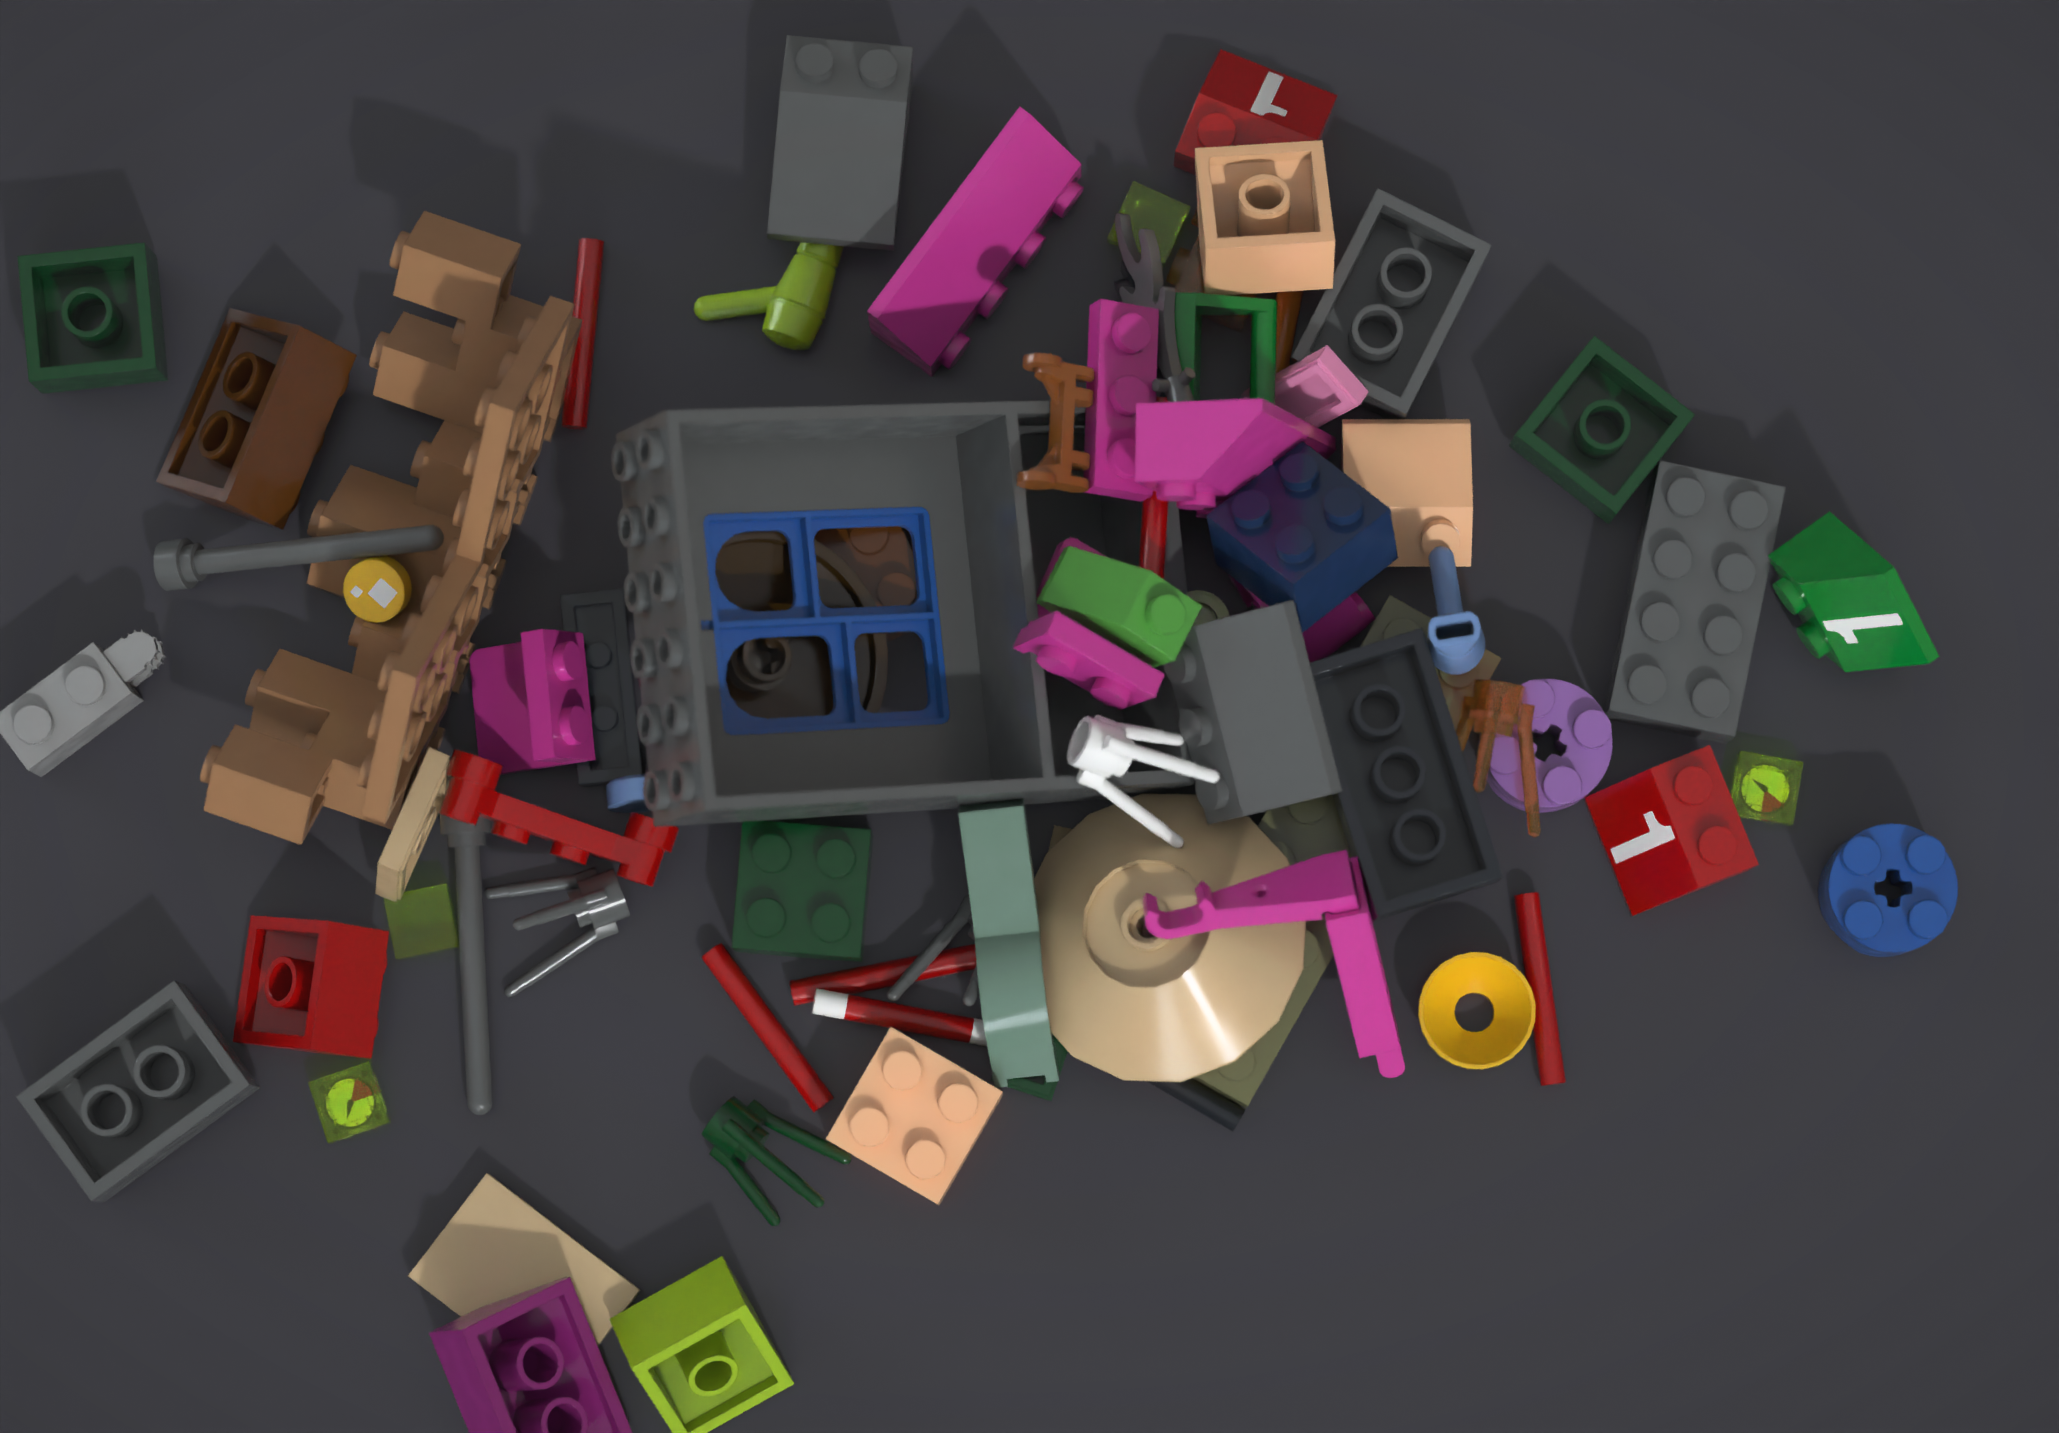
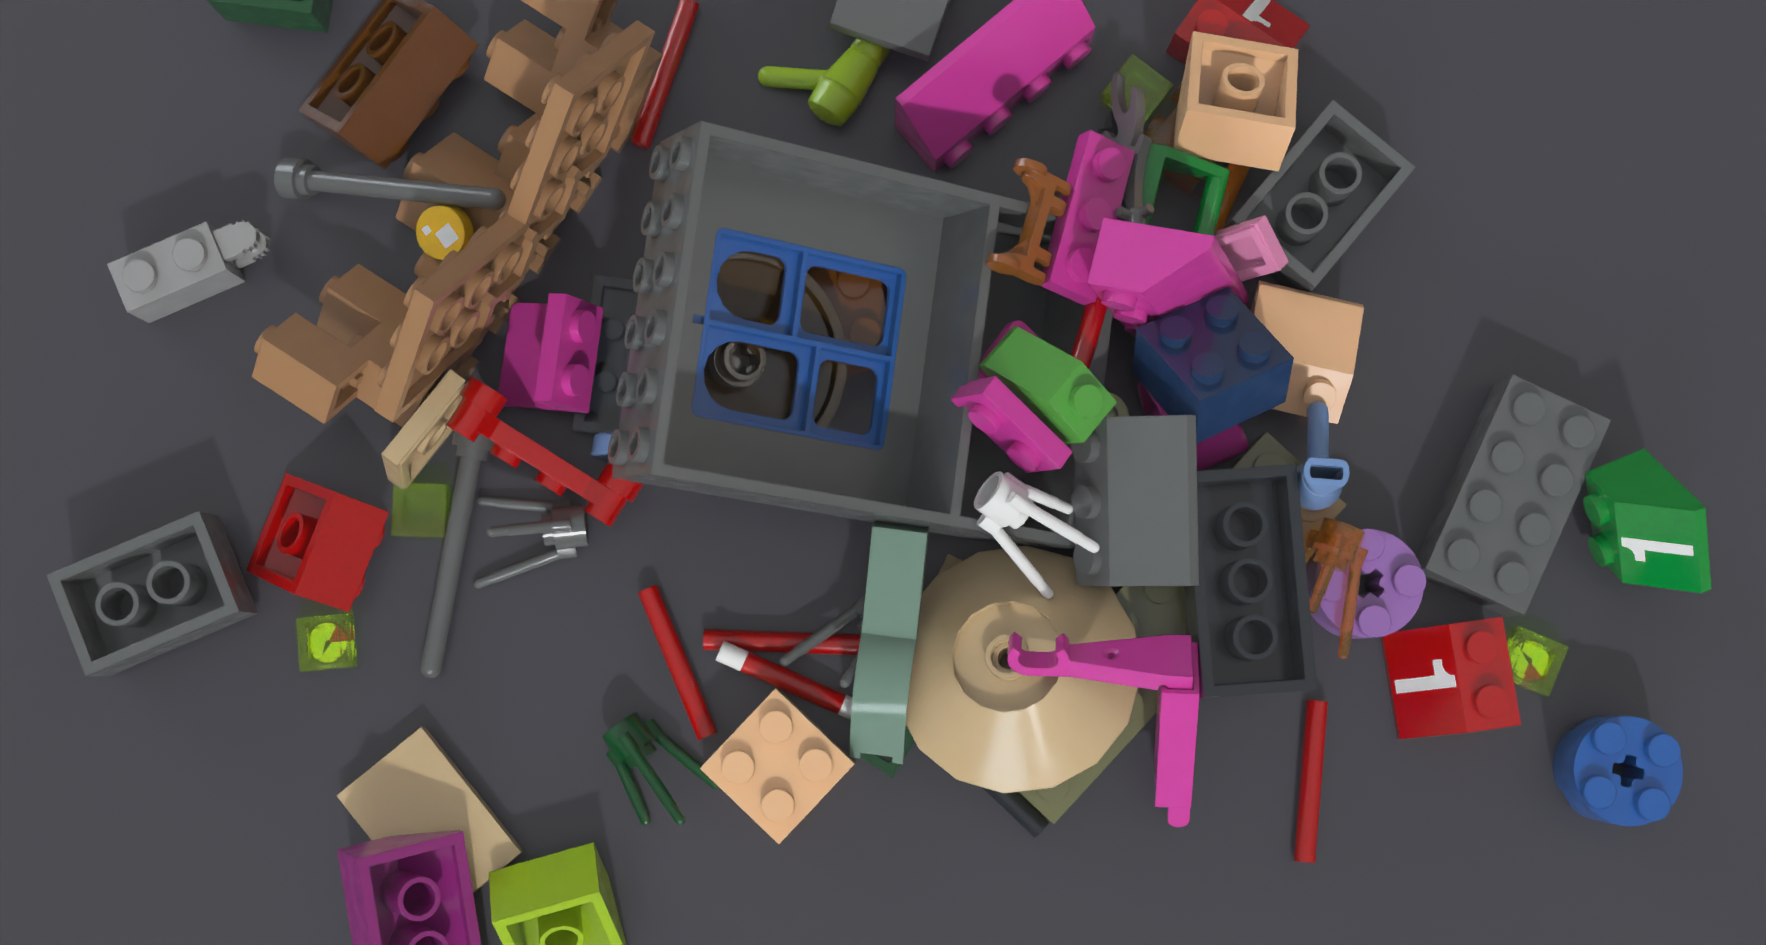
camera: 10 degrees right, 0 degrees up
(802, 890) = (731, 558): dark green brick -> none
(1504, 989) = (1285, 793): yellow piece -> none
(1601, 429) = (1468, 339): dark green brick -> none

